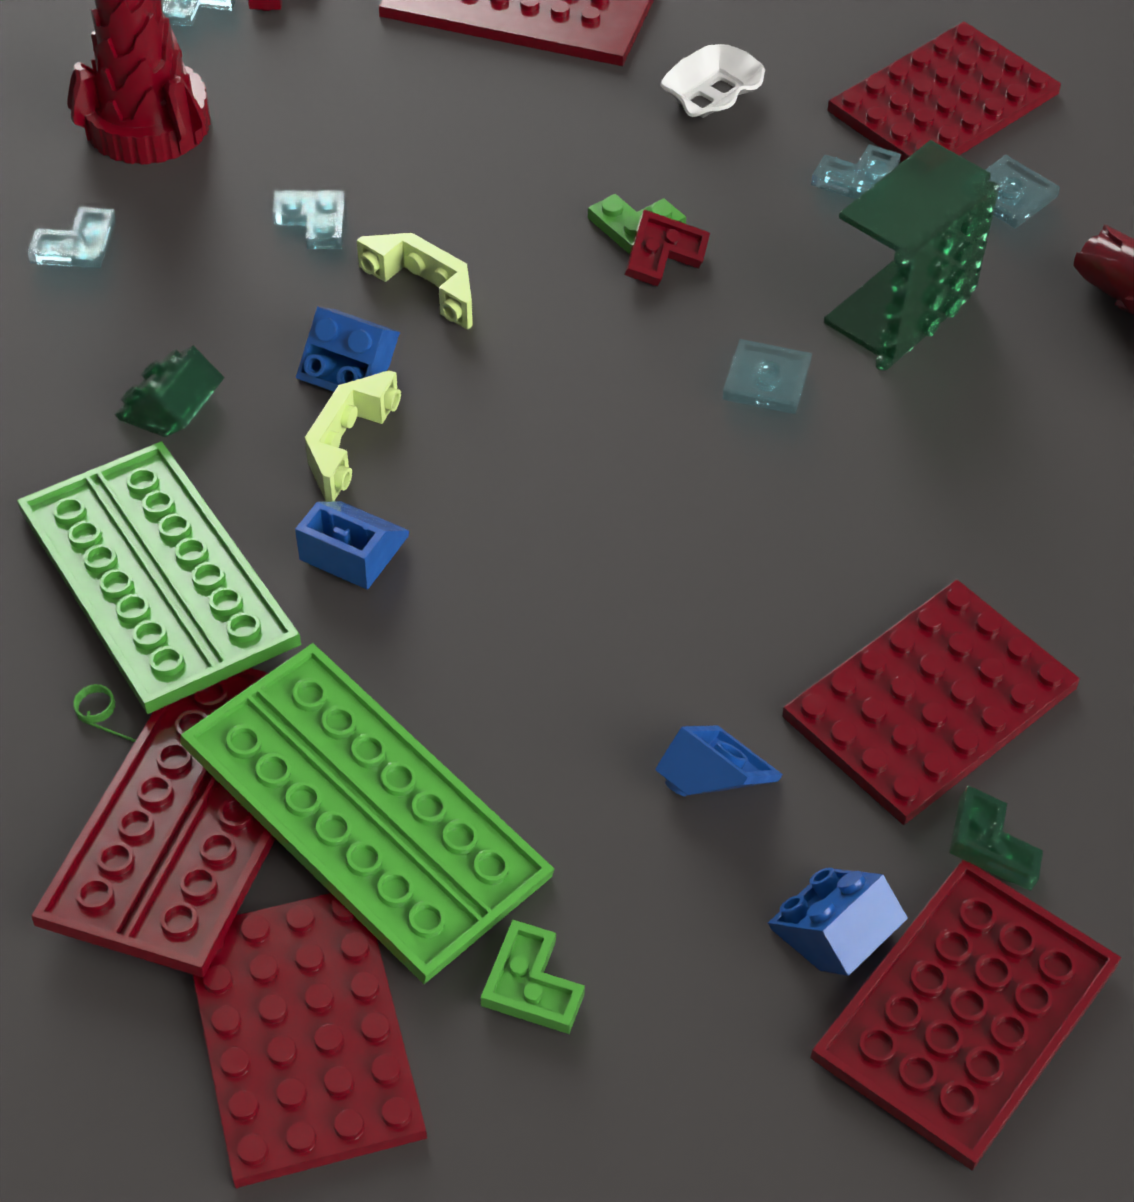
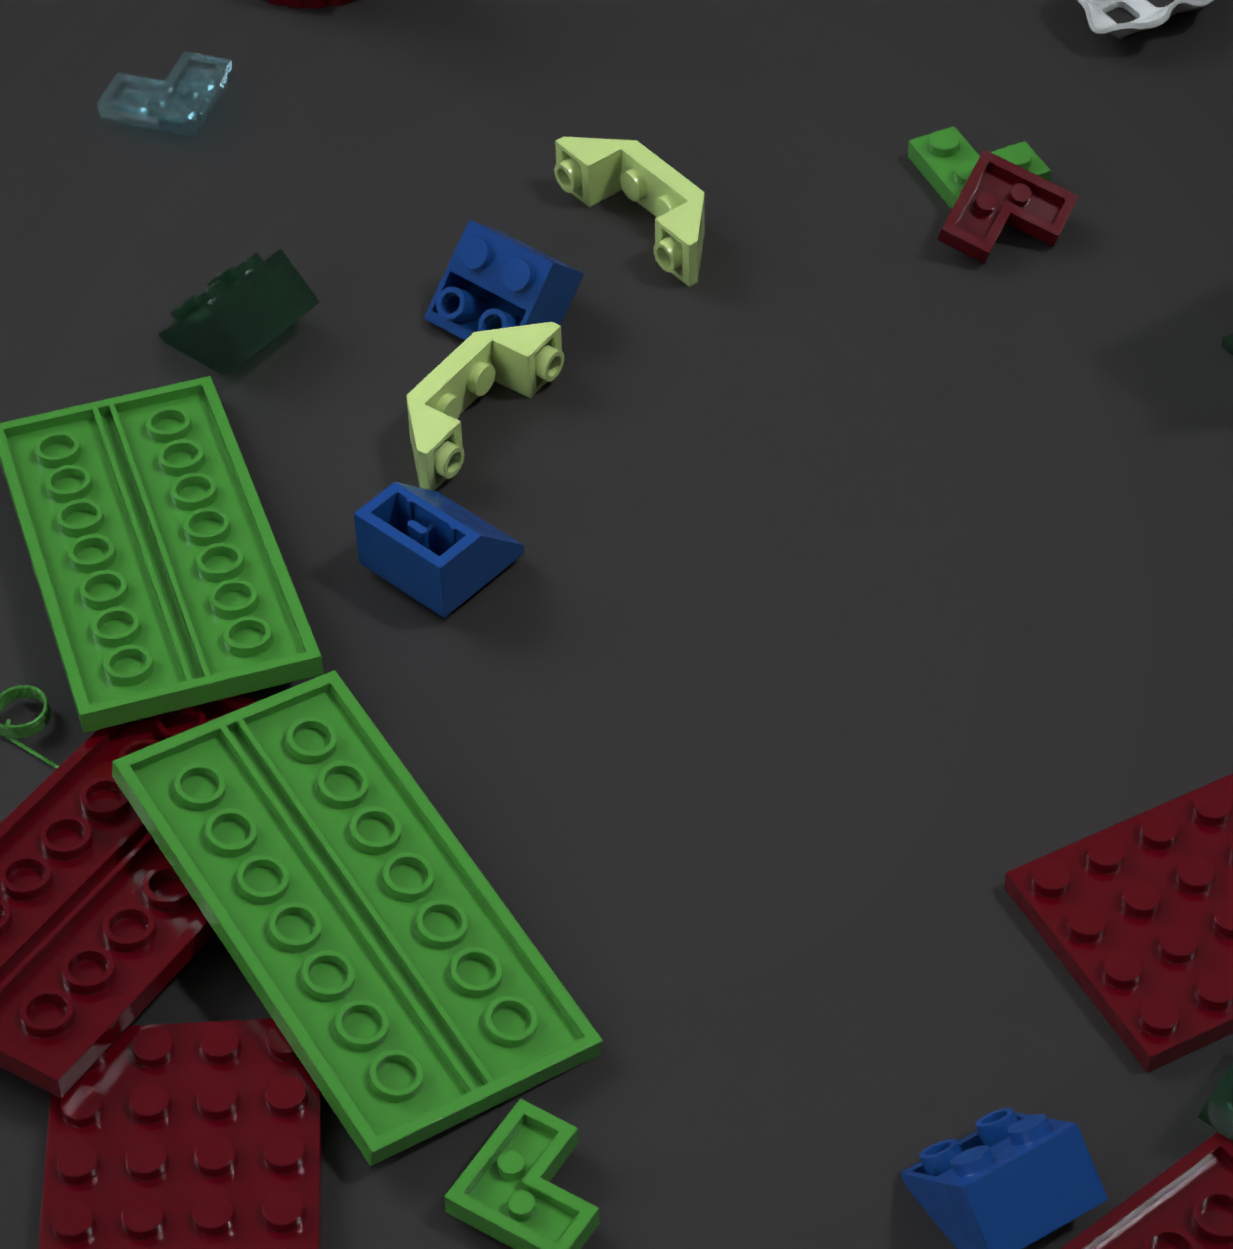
camera: 15 degrees right, 5 degrees down
(319, 210) = (518, 99): clear light blue plate -> none
(711, 761) = (874, 930): blue slope -> none
(767, 376) = (1111, 408): clear light blue plate -> none

